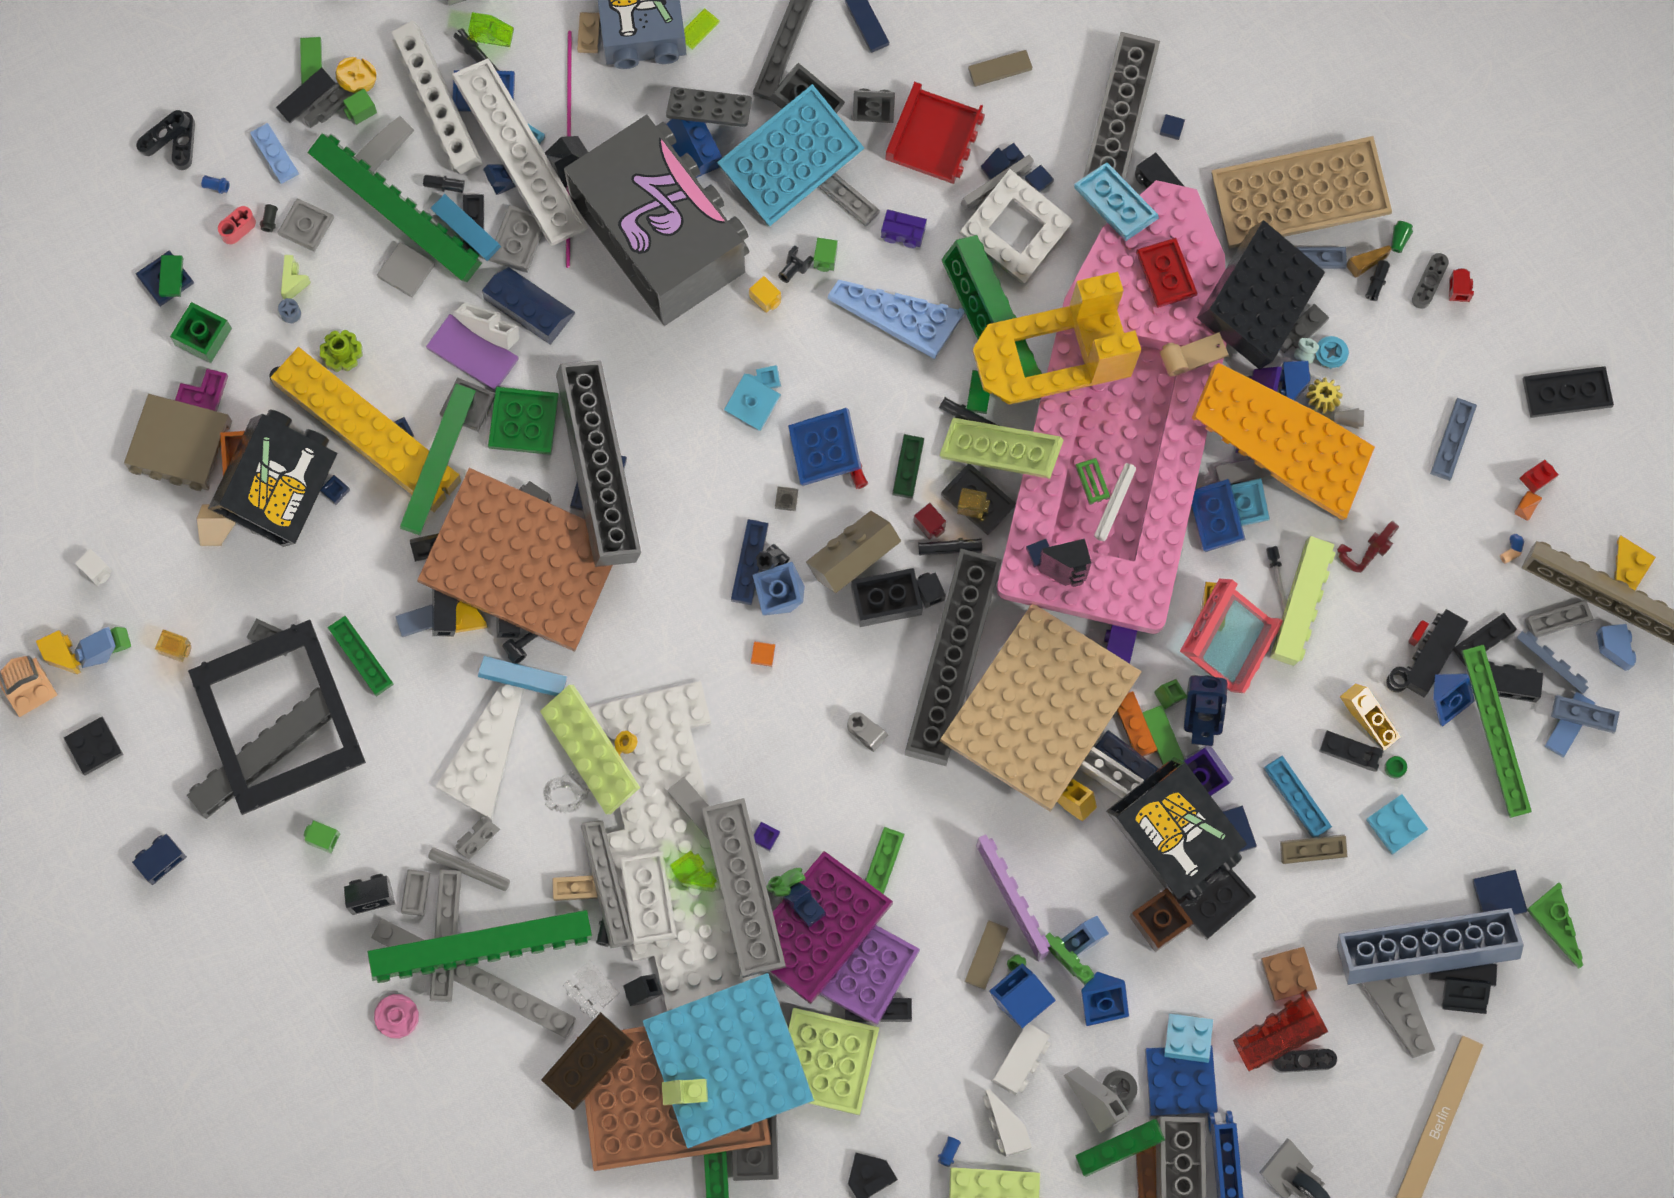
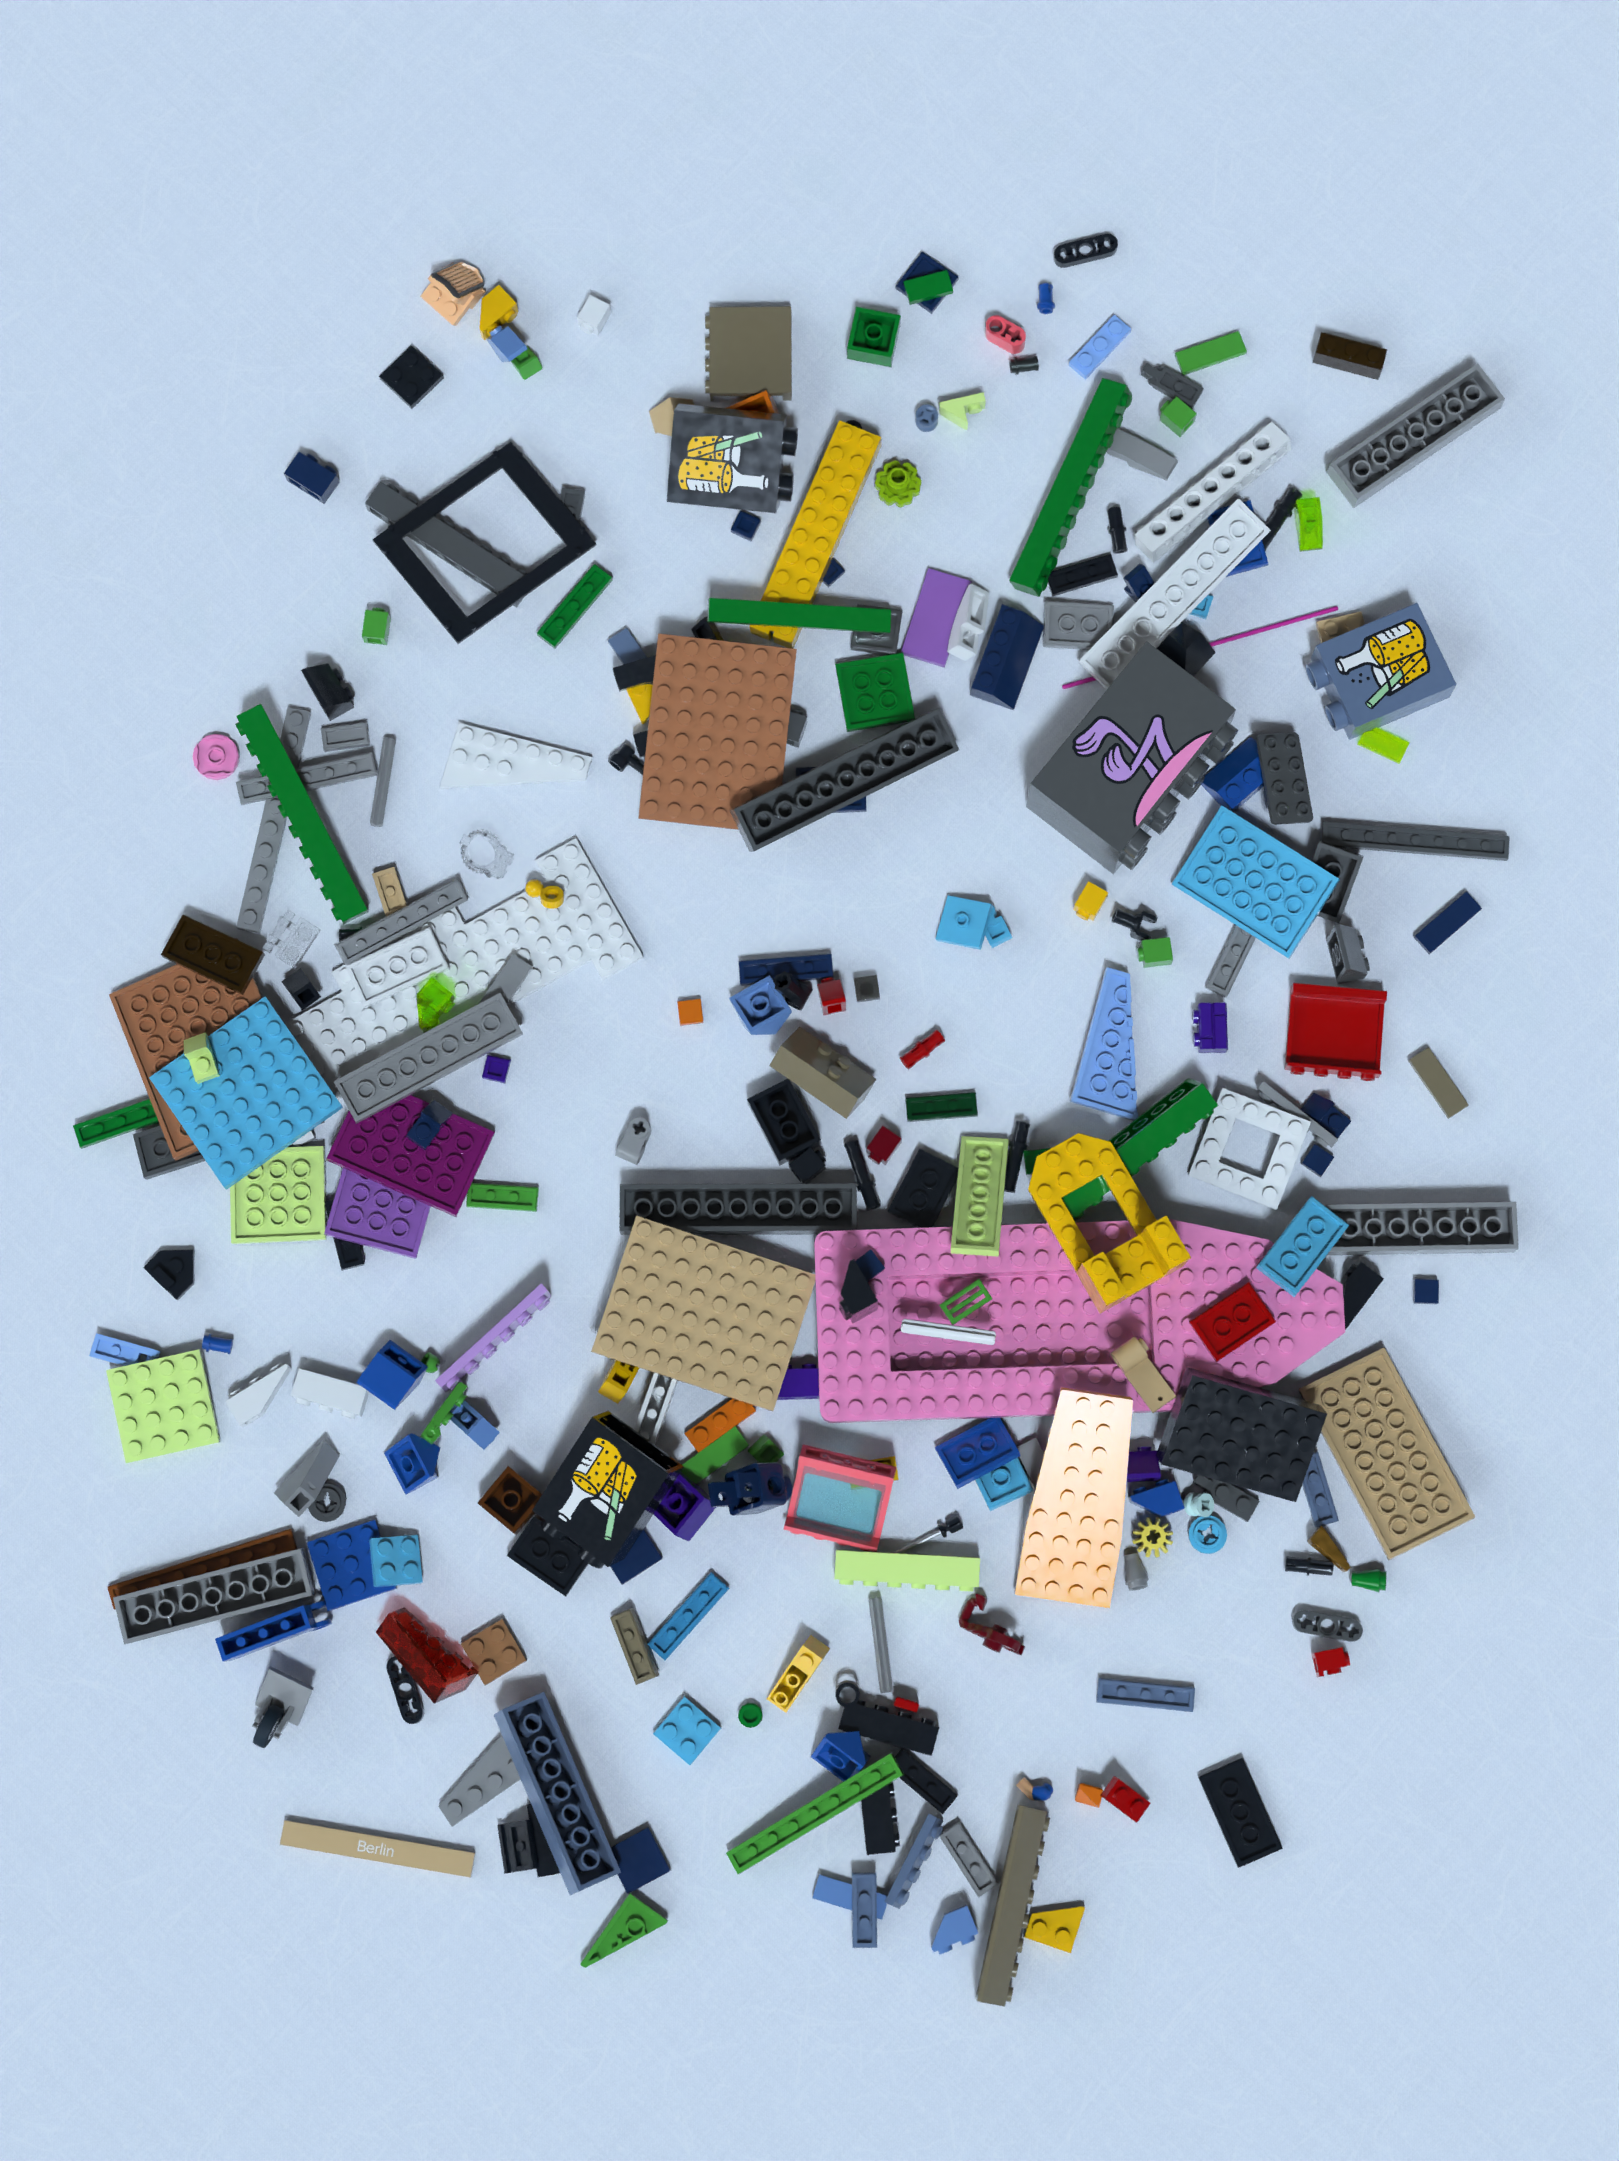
camera: 80 degrees right, 5 degrees up
(154, 132) = (1082, 218): black beam -> none
(173, 646) = (533, 419): clear yellow brick -> none
(208, 395) = (807, 365): magenta plate -> none
(305, 95) = (1173, 357): black tile -> none
(305, 225) = (1029, 404): light grey tile -> none
(355, 74) = (1213, 401): yellow tile -> none
(406, 269) = (1008, 521): light grey tile -> none
(465, 227) = (1072, 567): dark azure tile -> none
(472, 843) = (408, 775): light grey hinge -> none
(522, 676) = (596, 774): dark azure tile -> none
(590, 749) = (535, 863): yellowish green plate -> none
(781, 885) = (447, 1097): bright green plate -> none
(785, 528) = (831, 996): none -> red slope
(824, 446) = (933, 1011): blue plate -> none
(973, 503) = (912, 1184): clear yellow brick -> none
(986, 955) = (431, 1329): dark tan tile -> none
(1120, 1147) = (261, 1516): green plate -> none
(1125, 755) = (680, 1421): dark blue tile -> none
(1350, 751) = (754, 1661): black plate -> none
(1361, 641) = (880, 1645): none -> light grey axle

